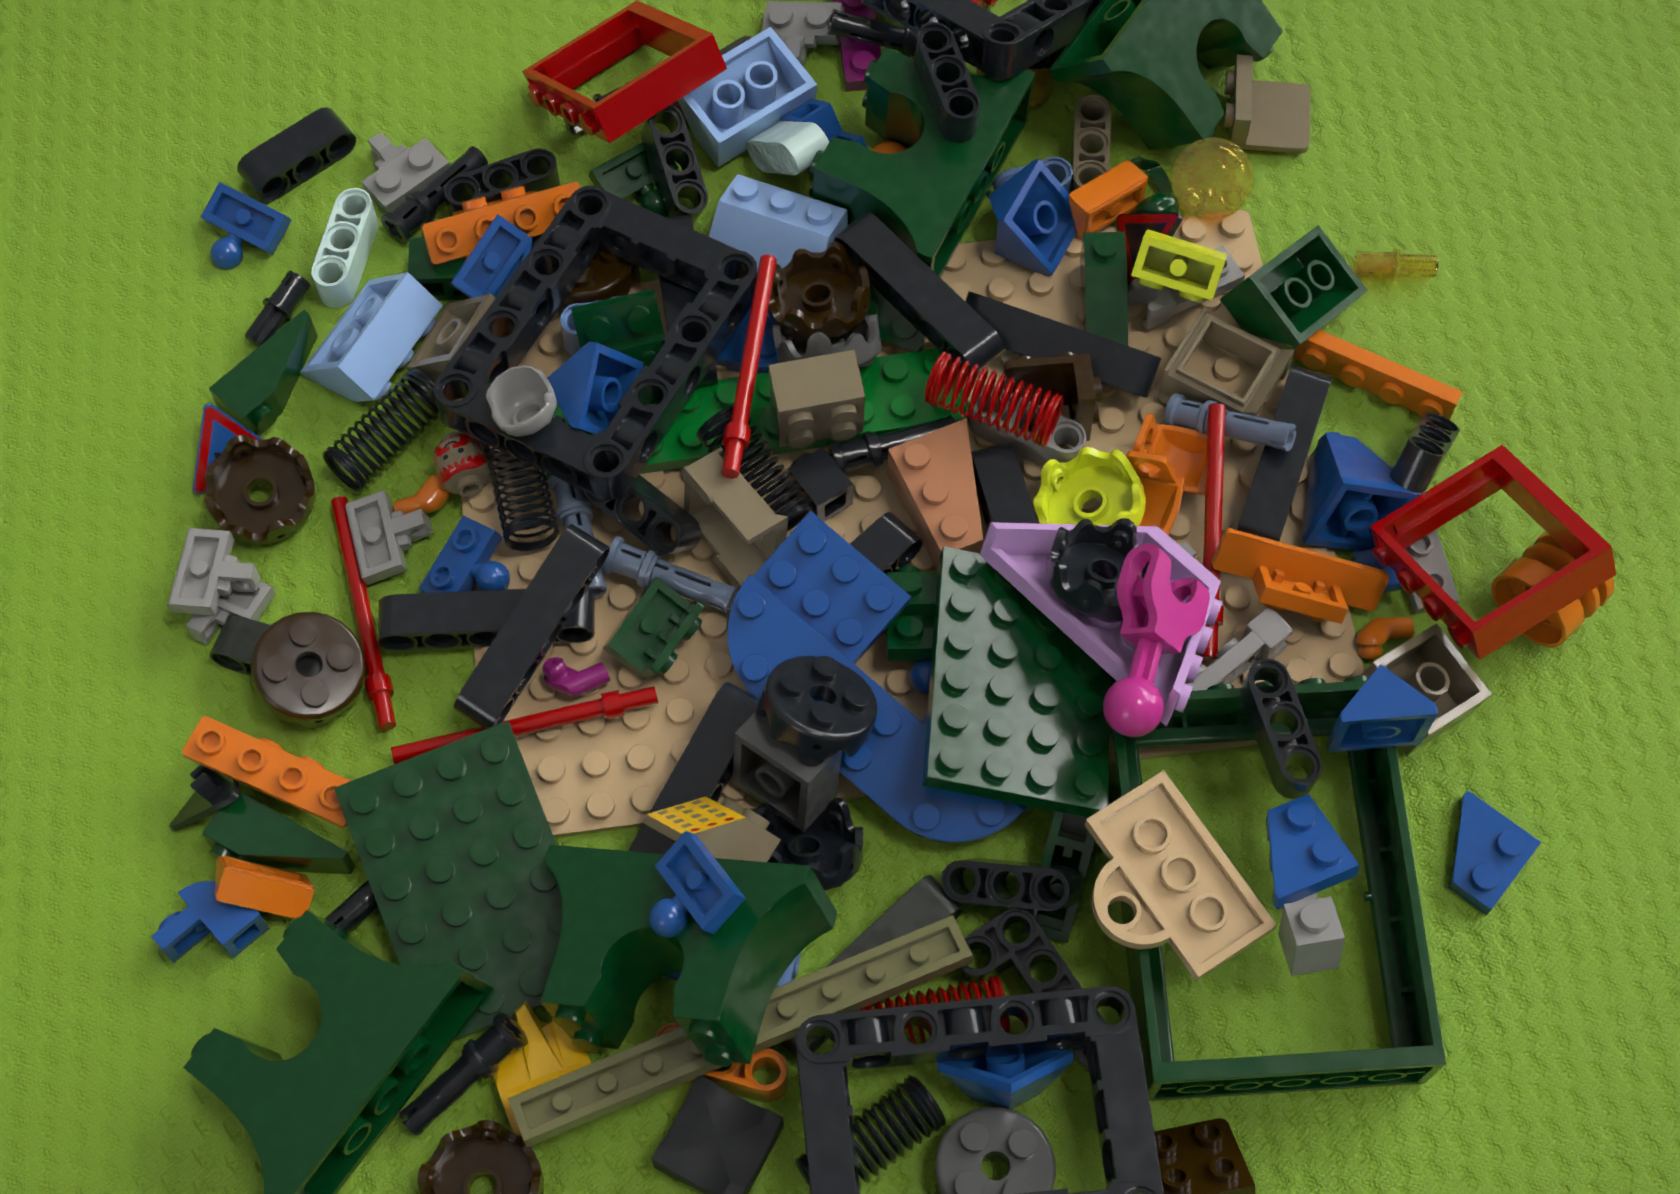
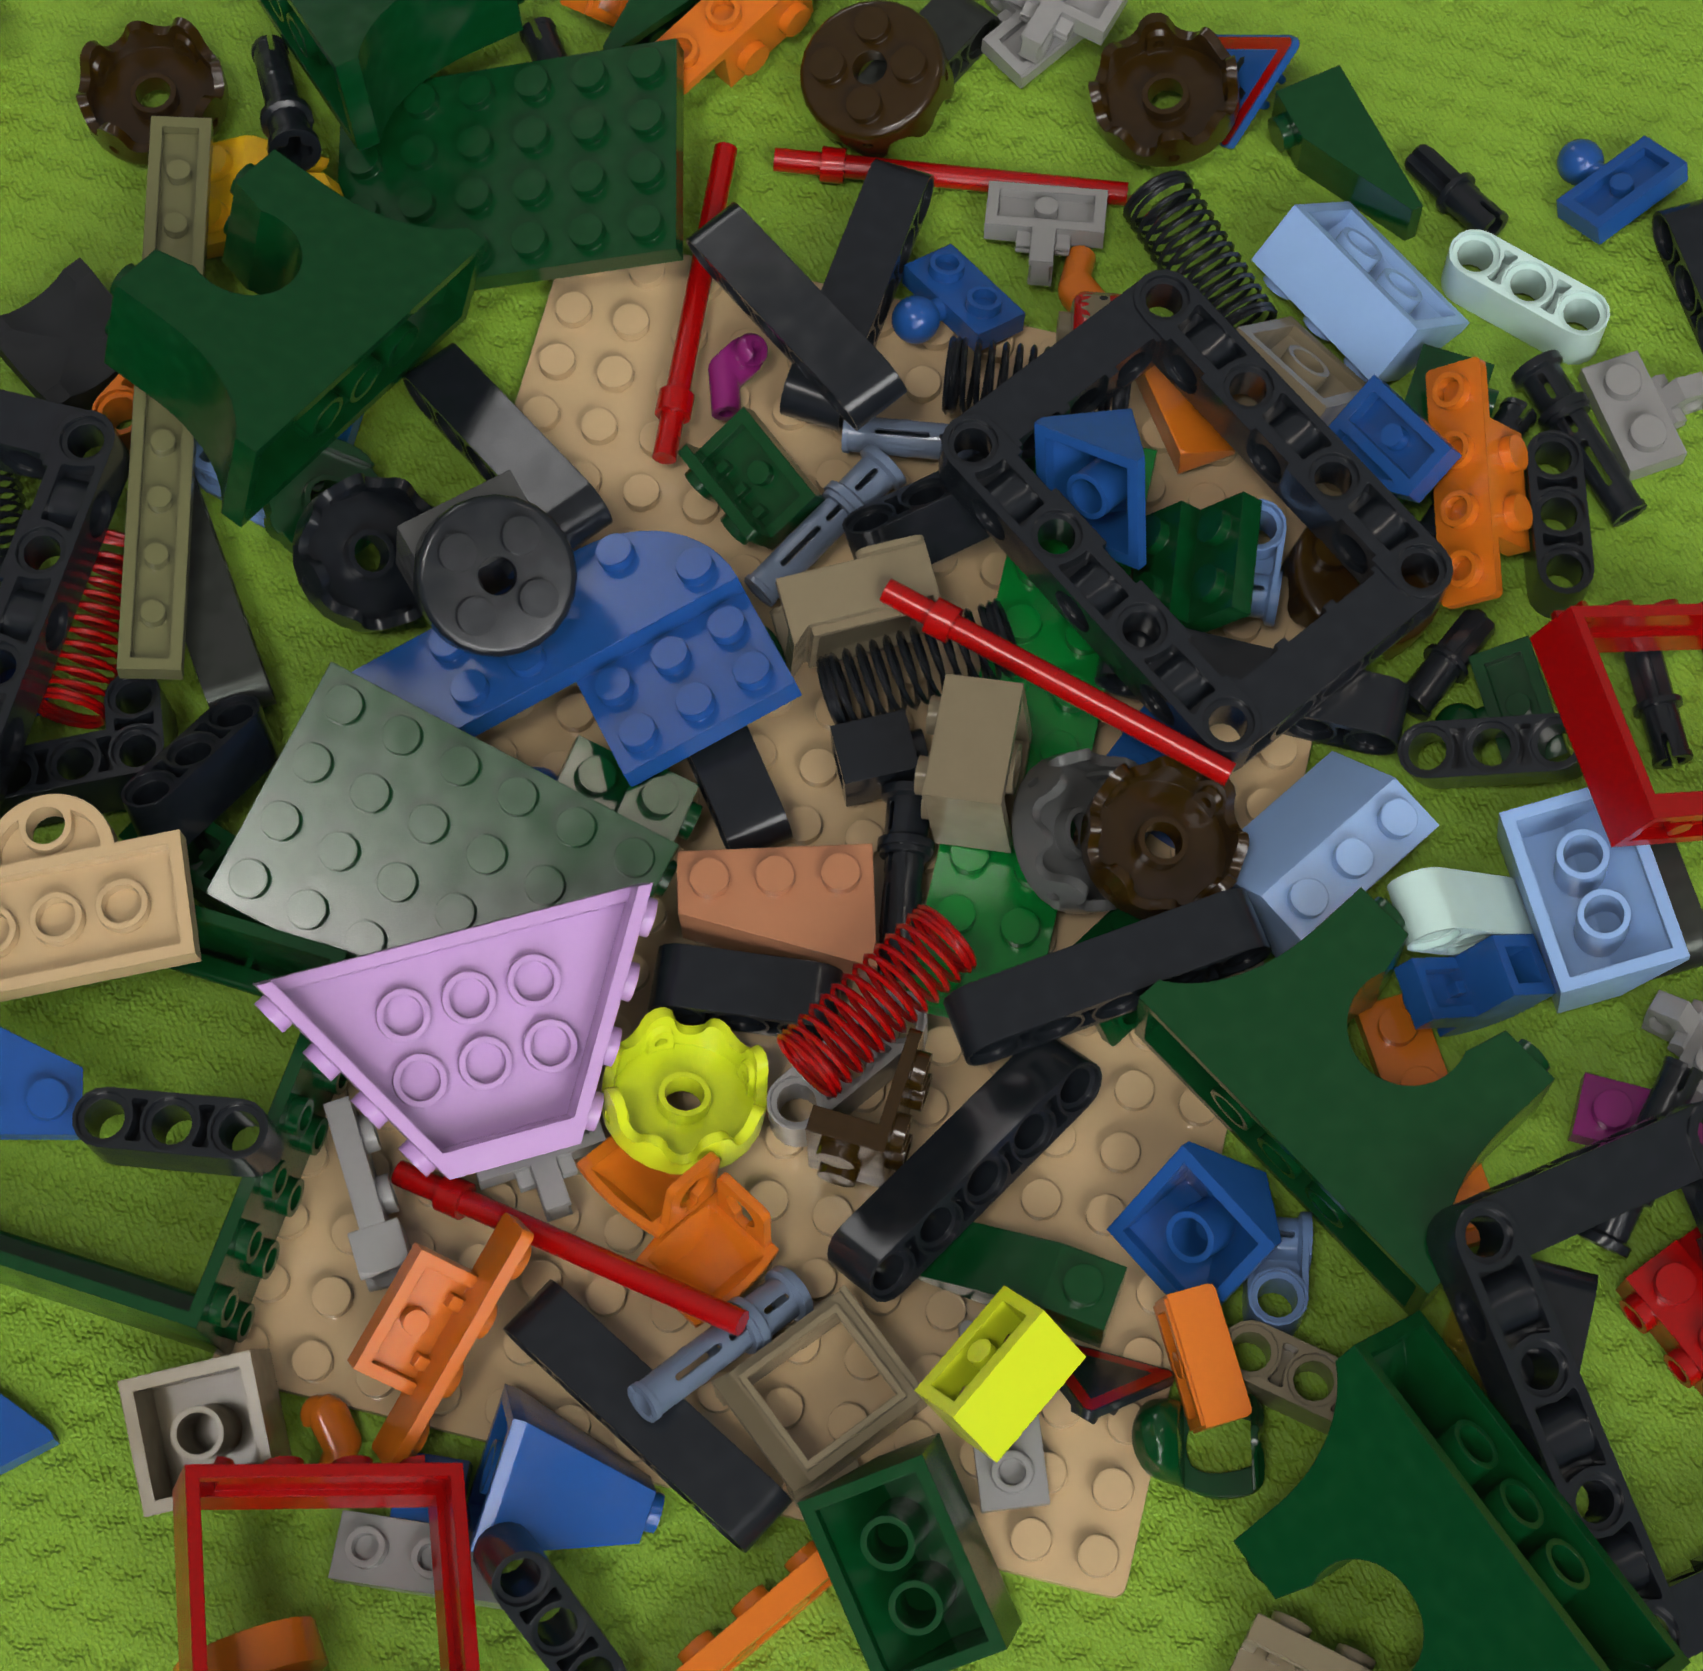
camera: 115 degrees right, 5 degrees up
(521, 400) = (1086, 351): light grey hair -> none
(699, 888) = (296, 325): blue plate -> none
(723, 828) = (403, 415): dark tan slope -> none
(946, 82) = (1464, 1108): black beam -> none
(1087, 551) = (564, 1015): black plate -> none
(1156, 625) = (381, 1012): dark pink piece -> none
(1212, 178) = (1177, 1540): clear yellow tile -> none
(1383, 715) = (112, 1256): blue slope -> none

